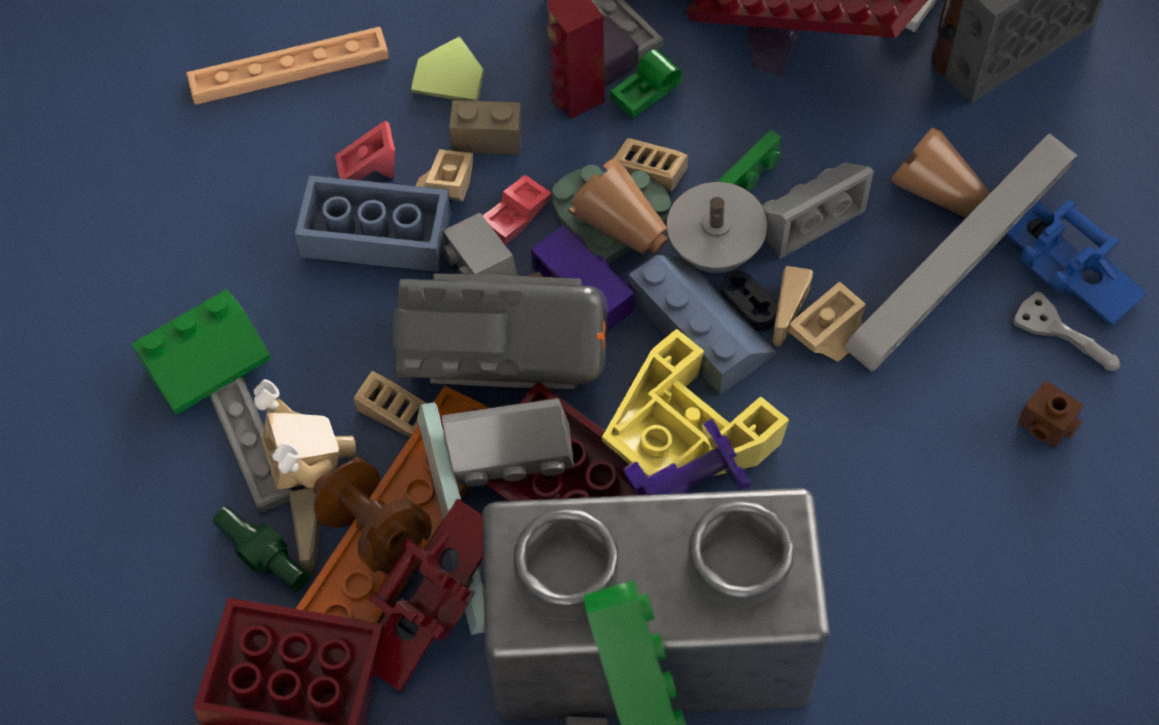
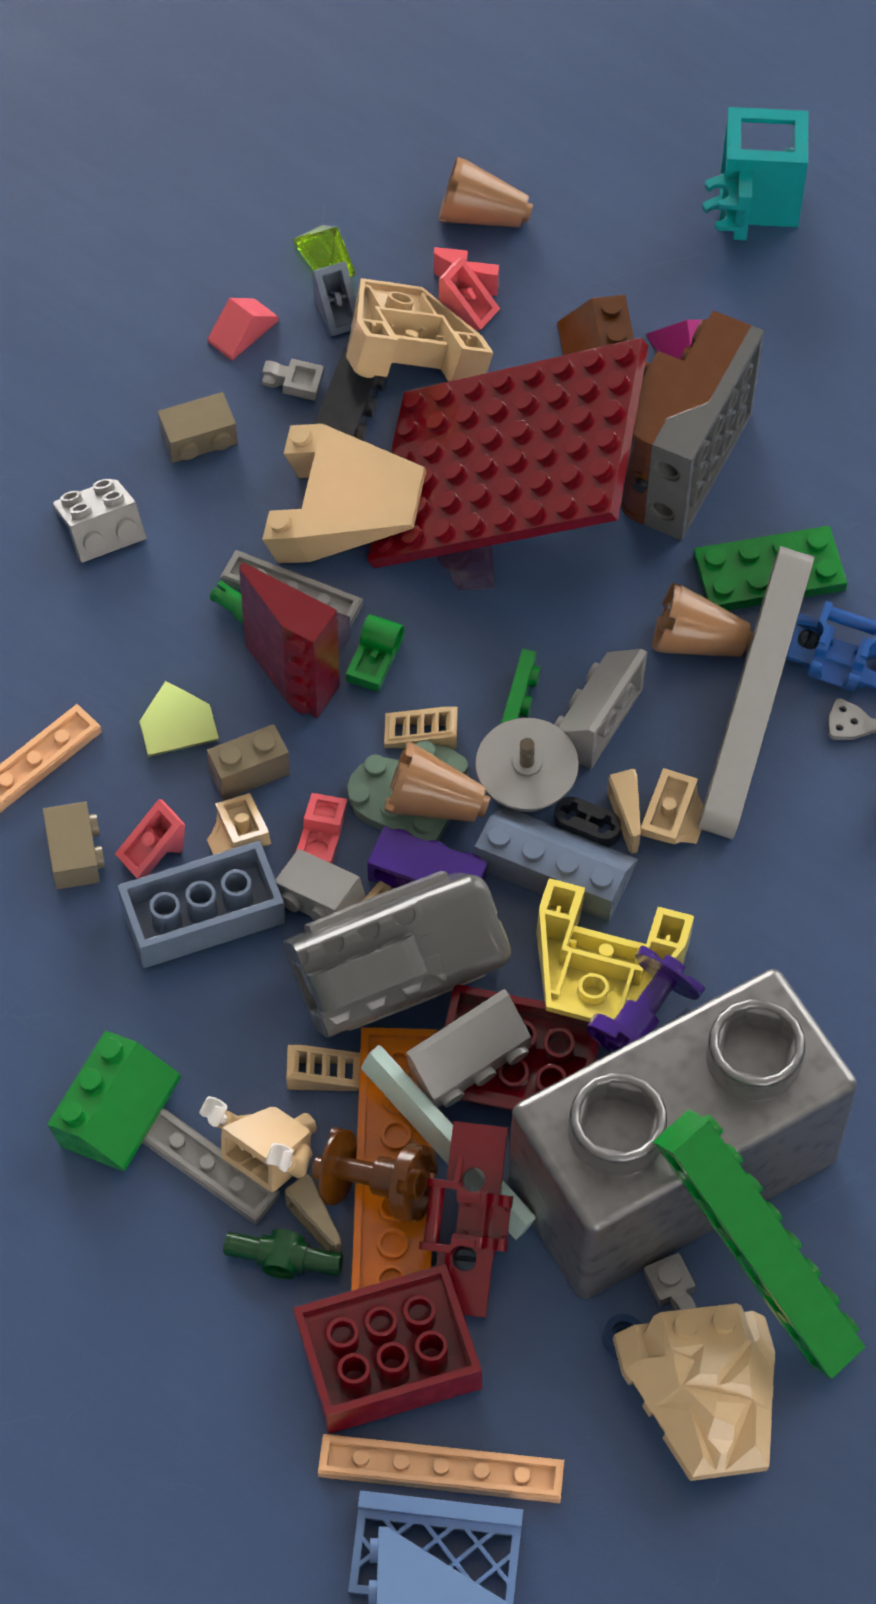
camera: 30 degrees left, 0 degrees up
(304, 133) = (72, 846): none -> dark tan brick
(1002, 143) = (739, 571): none -> green plate

